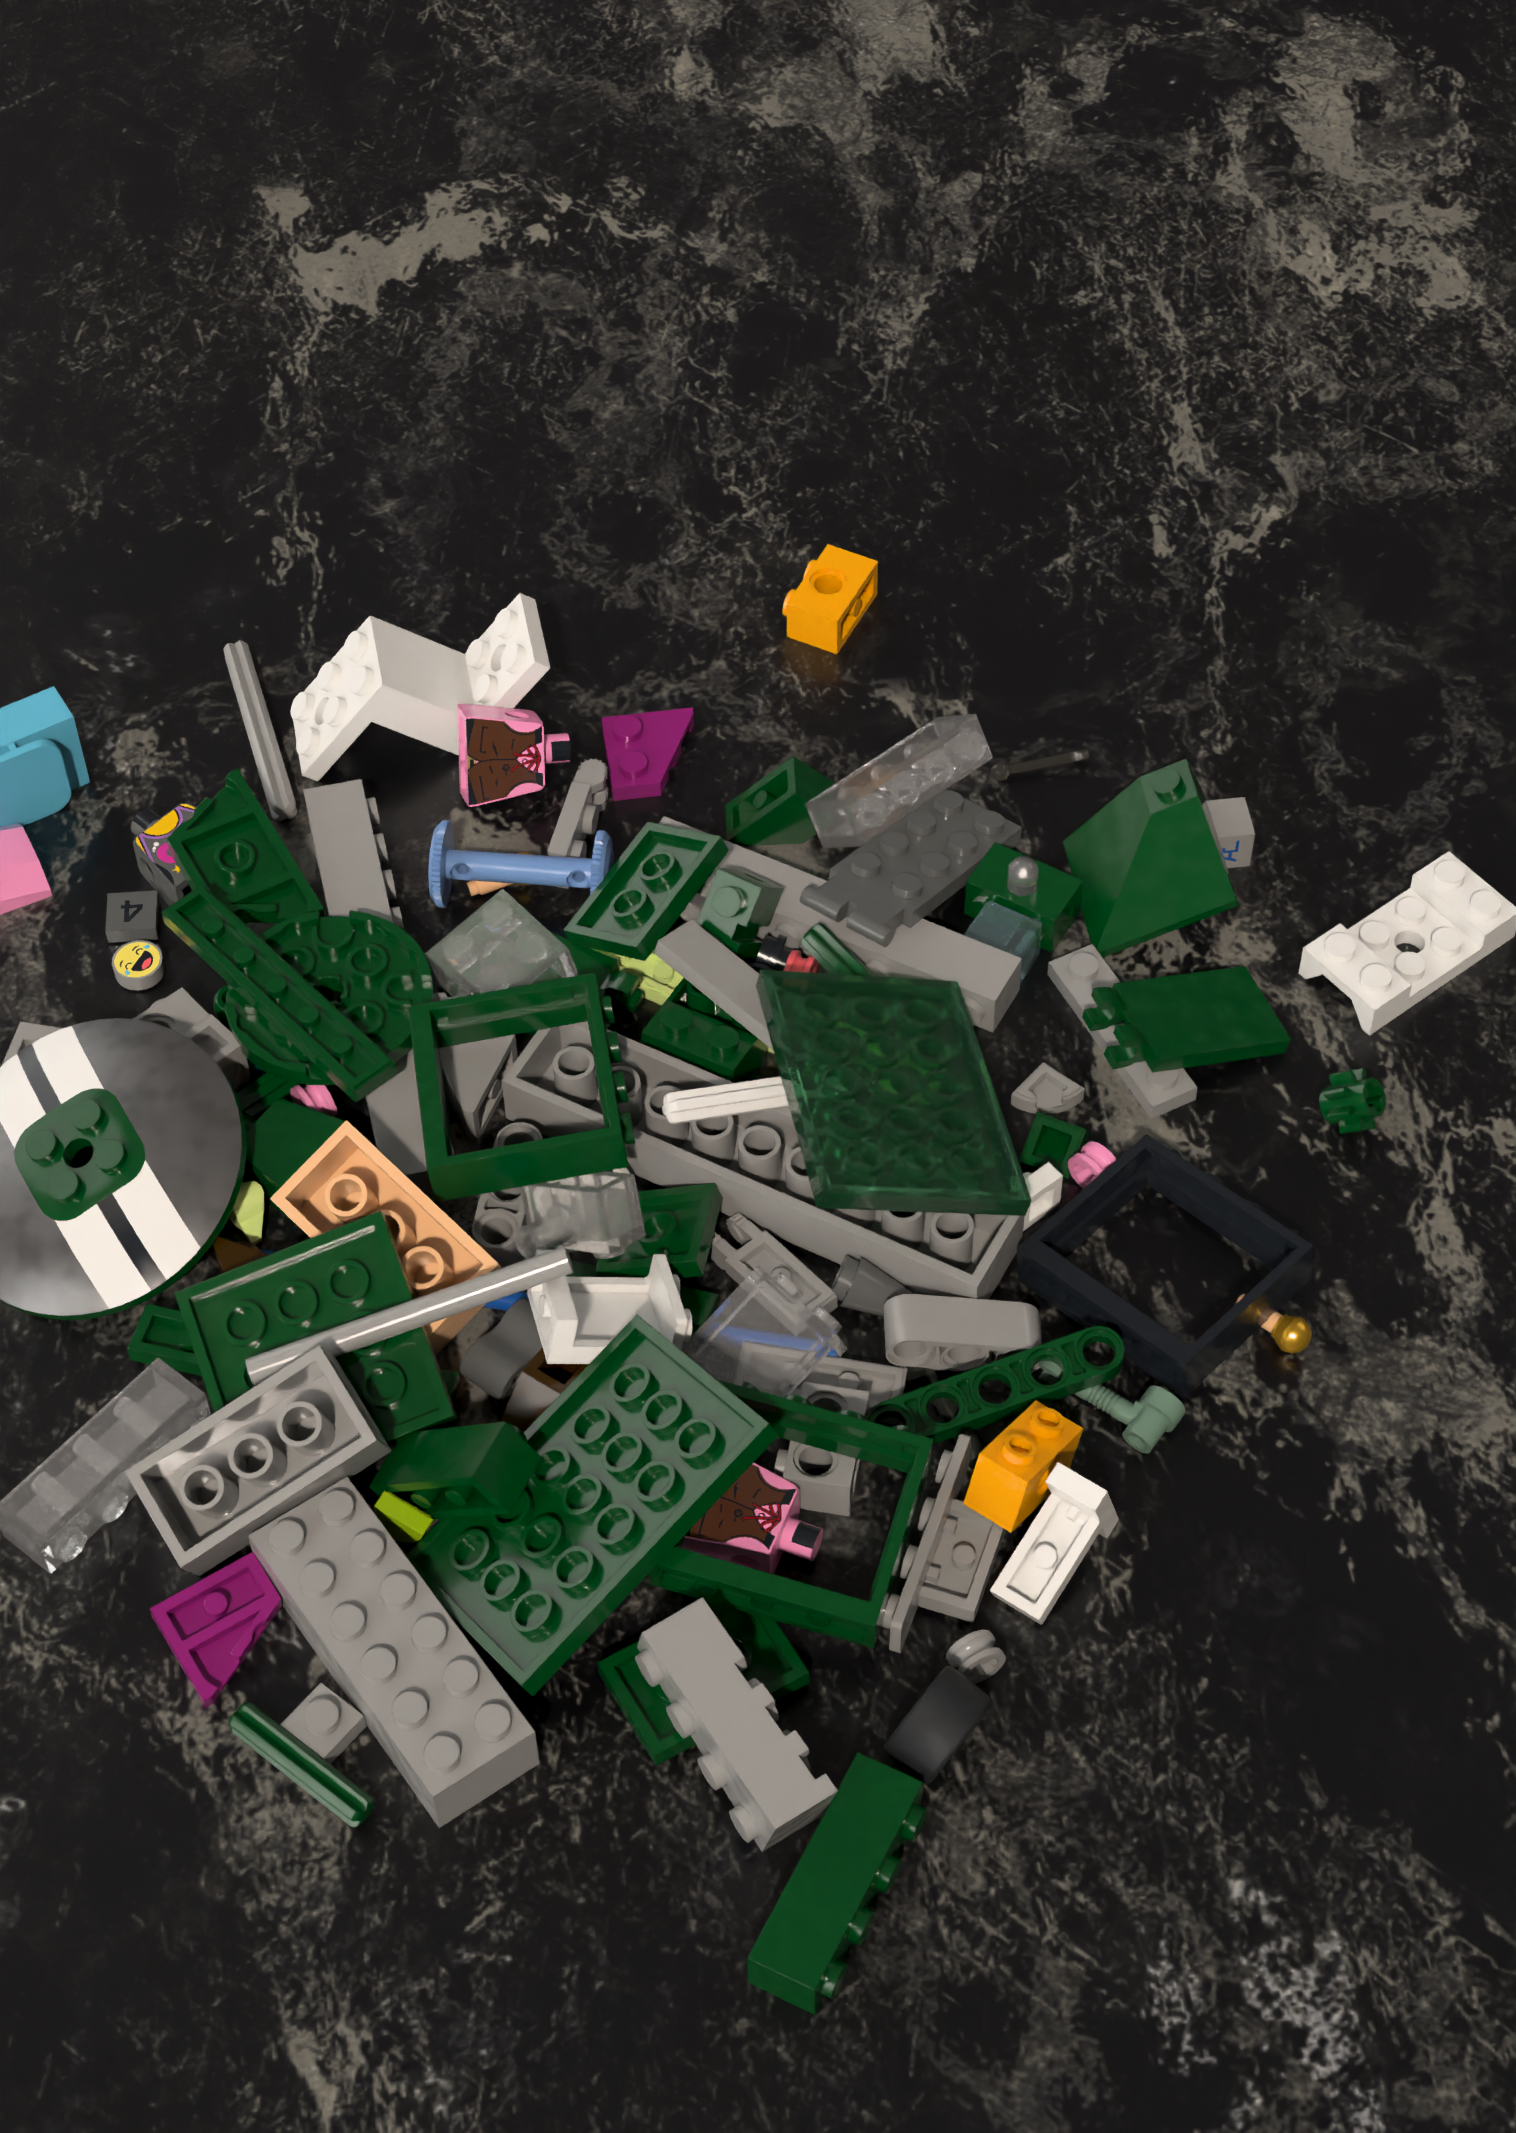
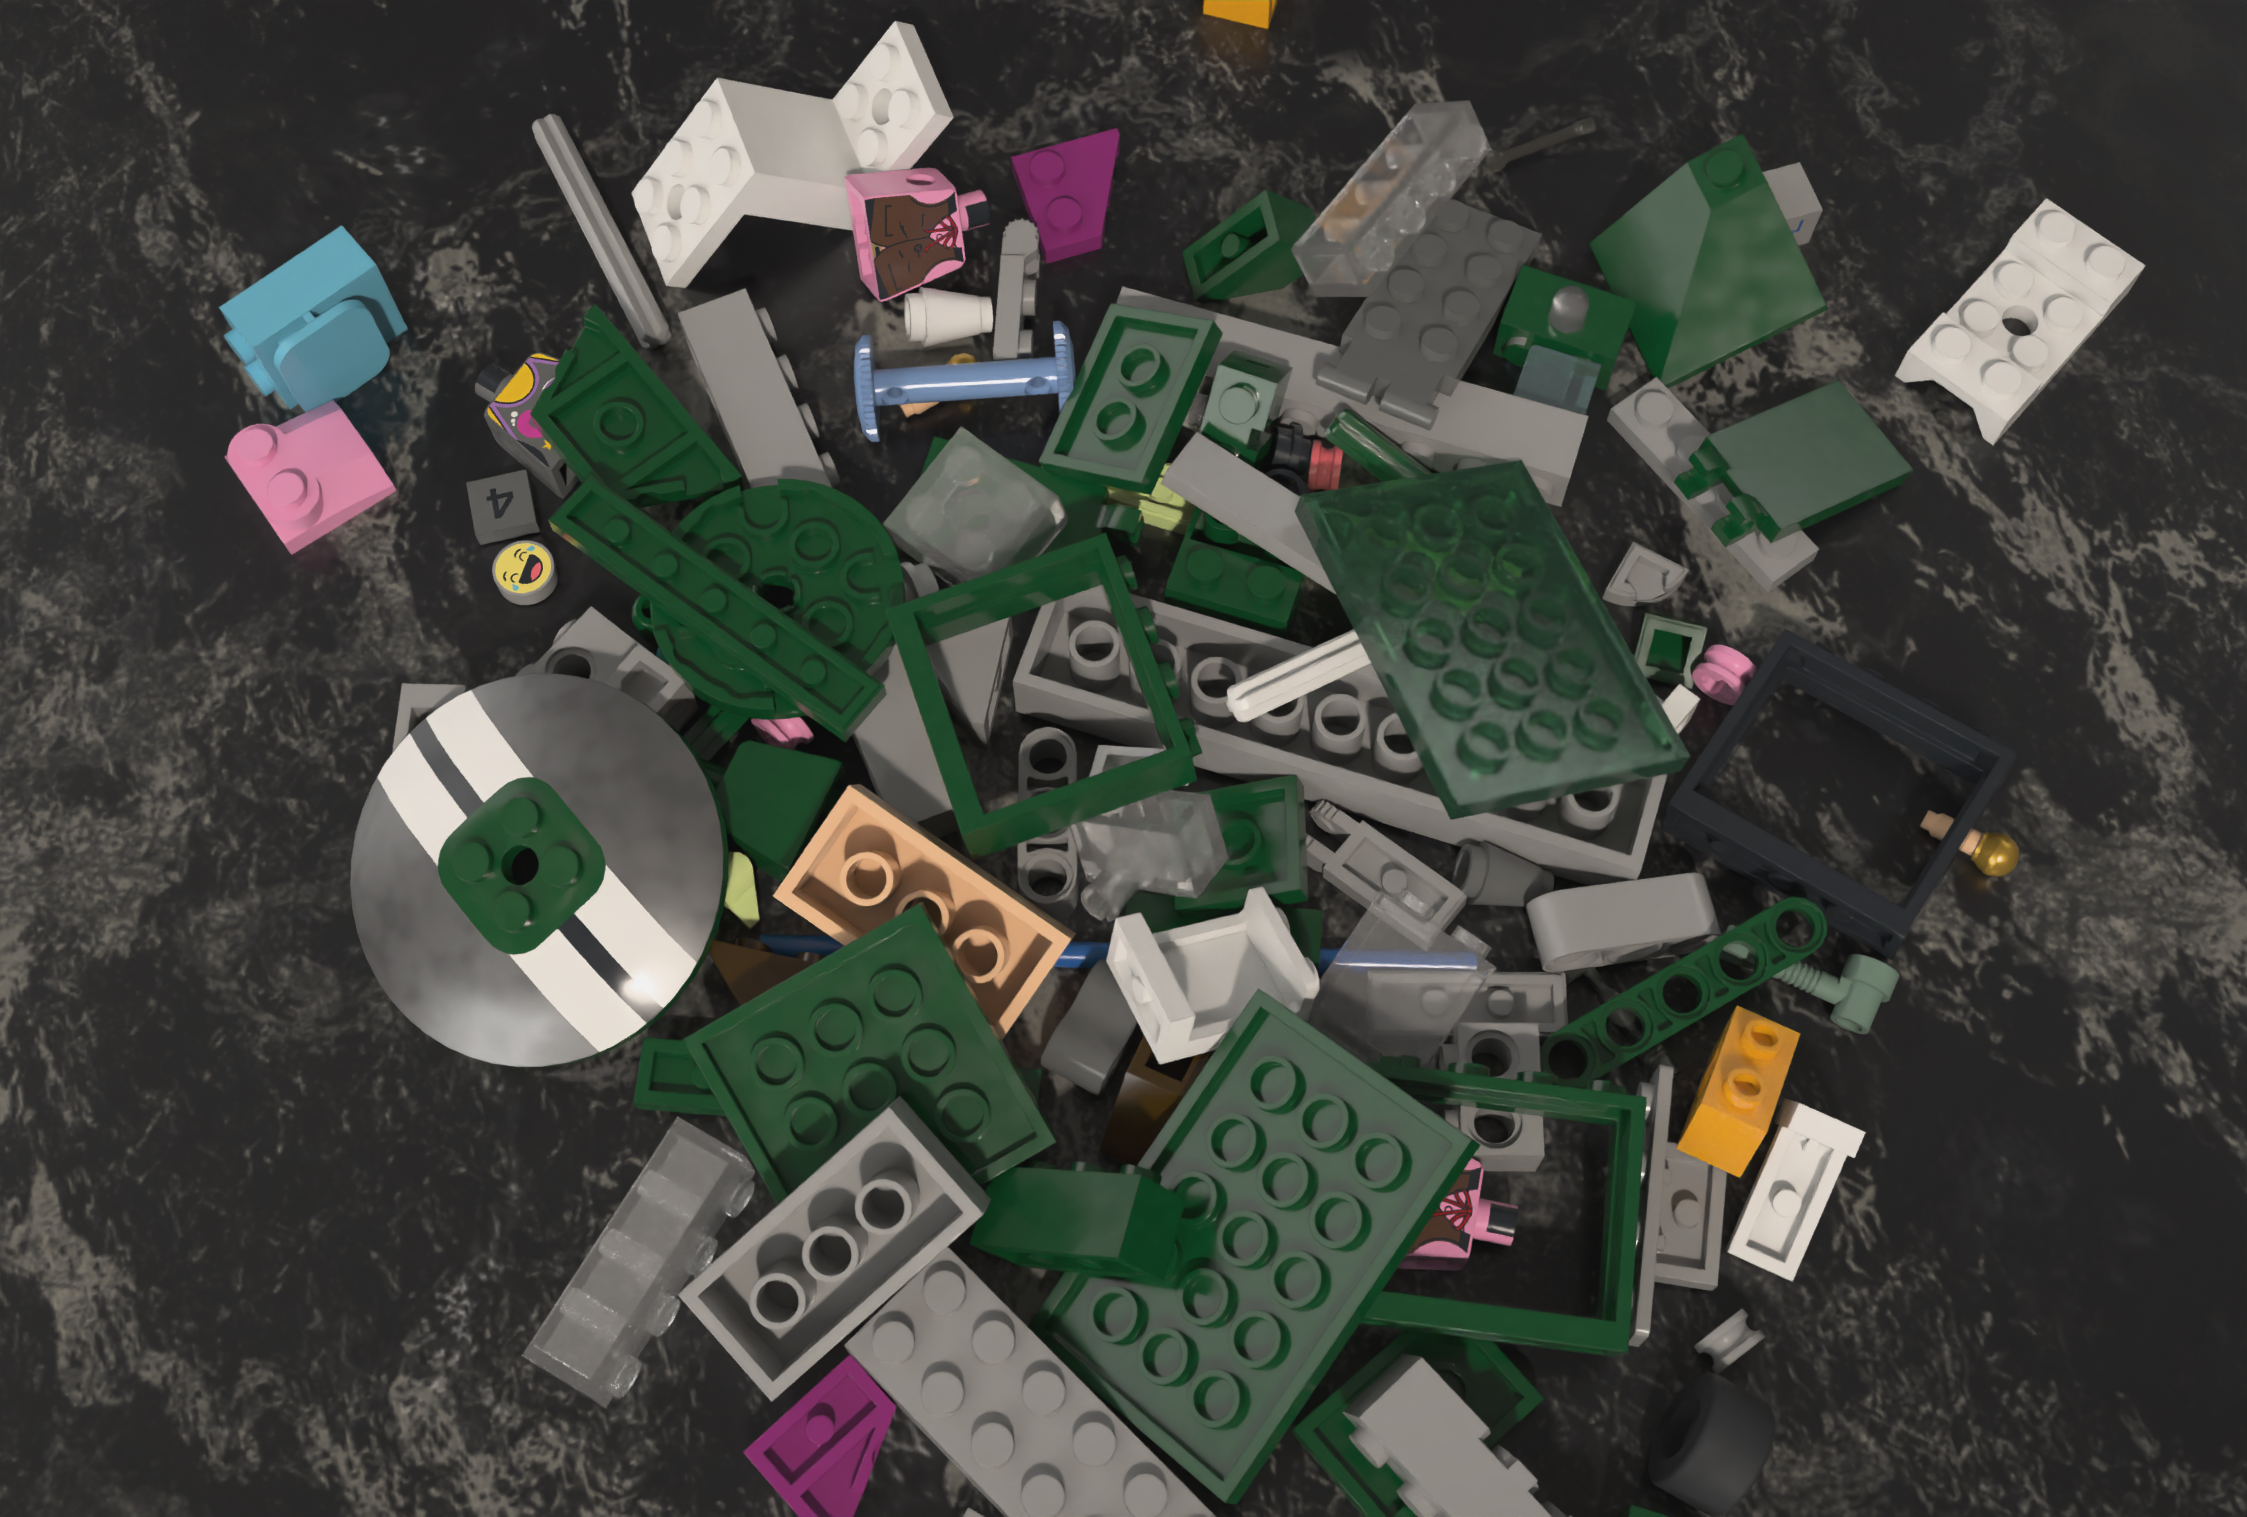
camera: 10 degrees left, 15 degrees up
(401, 1519) = (1016, 1276): lime tile -> none
(417, 1312) = (982, 1033): light grey piece -> none
(519, 824) = (945, 316): none -> white cone
(1352, 1101) = (2004, 542): dark green gear -> none

